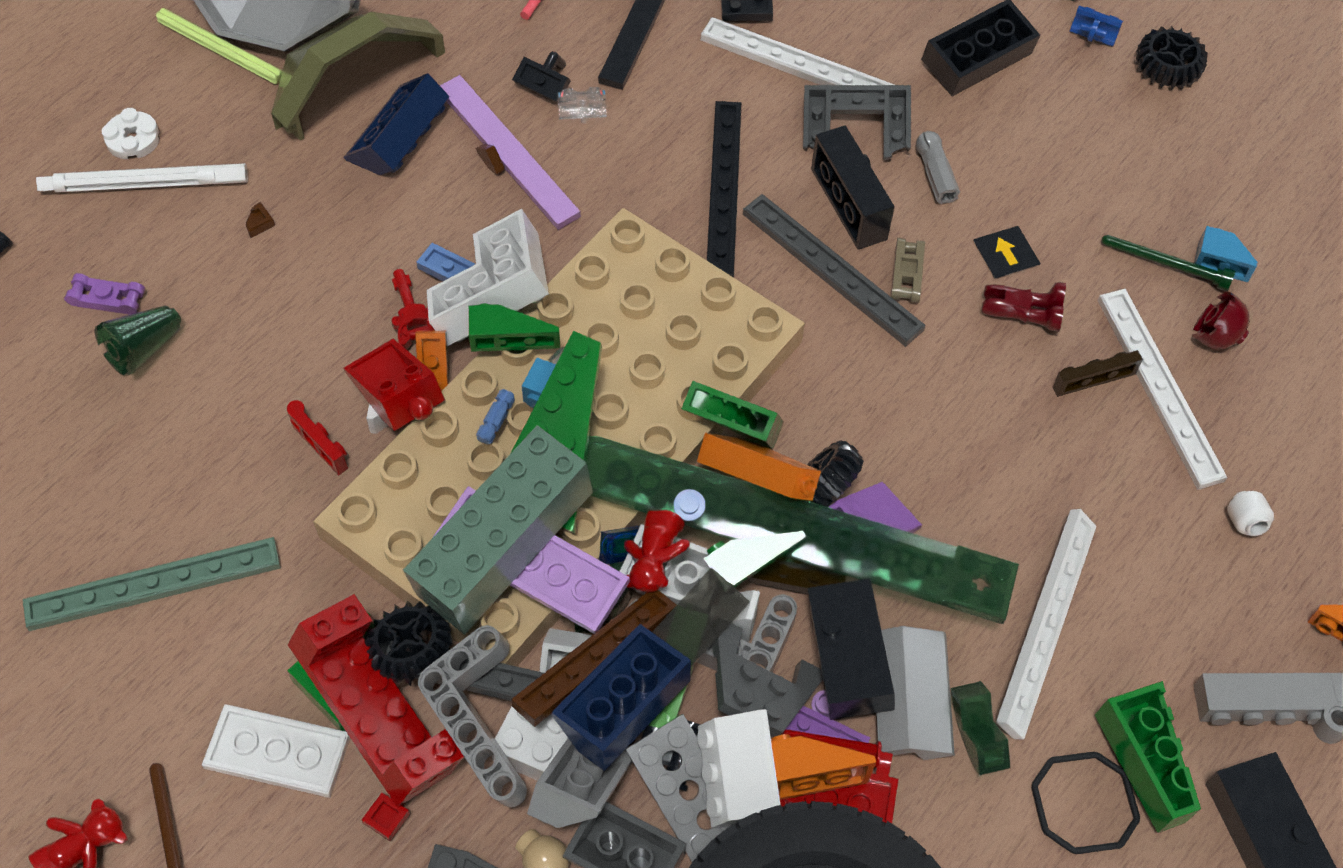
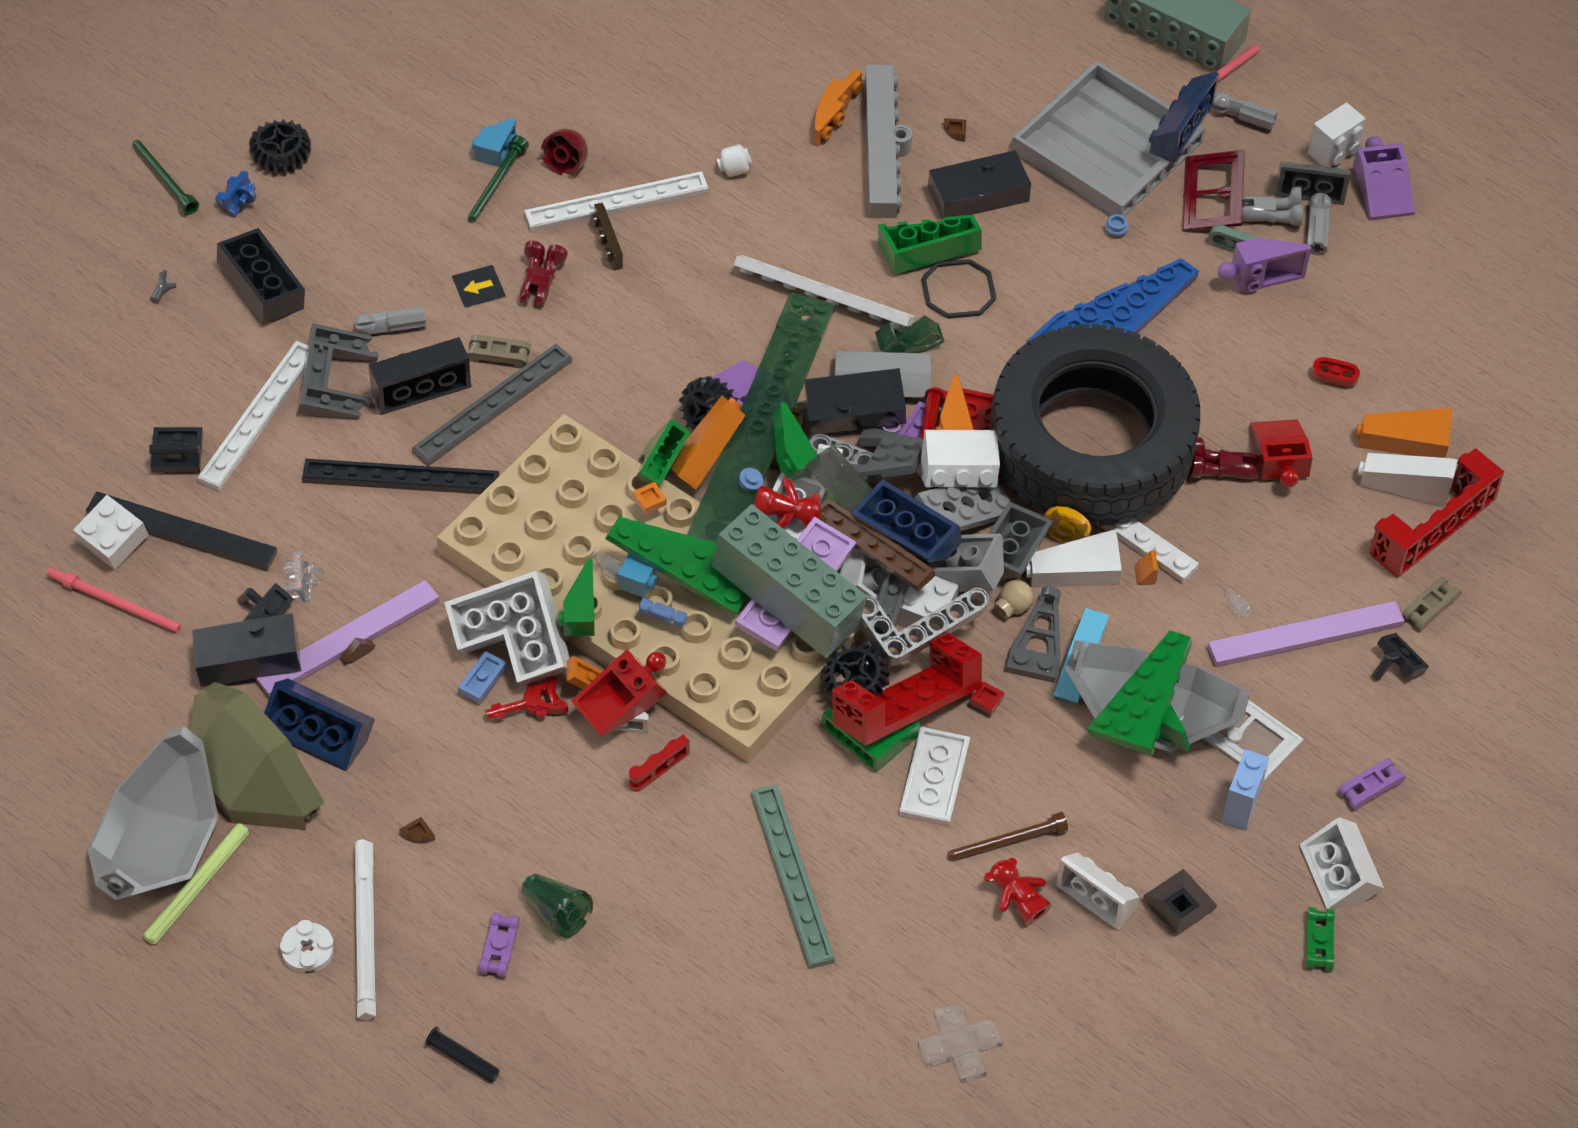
camera: 90 degrees left, 5 degrees down
(483, 60) = (246, 650): none -> black brick
(662, 398) = (649, 498): none -> orange plate

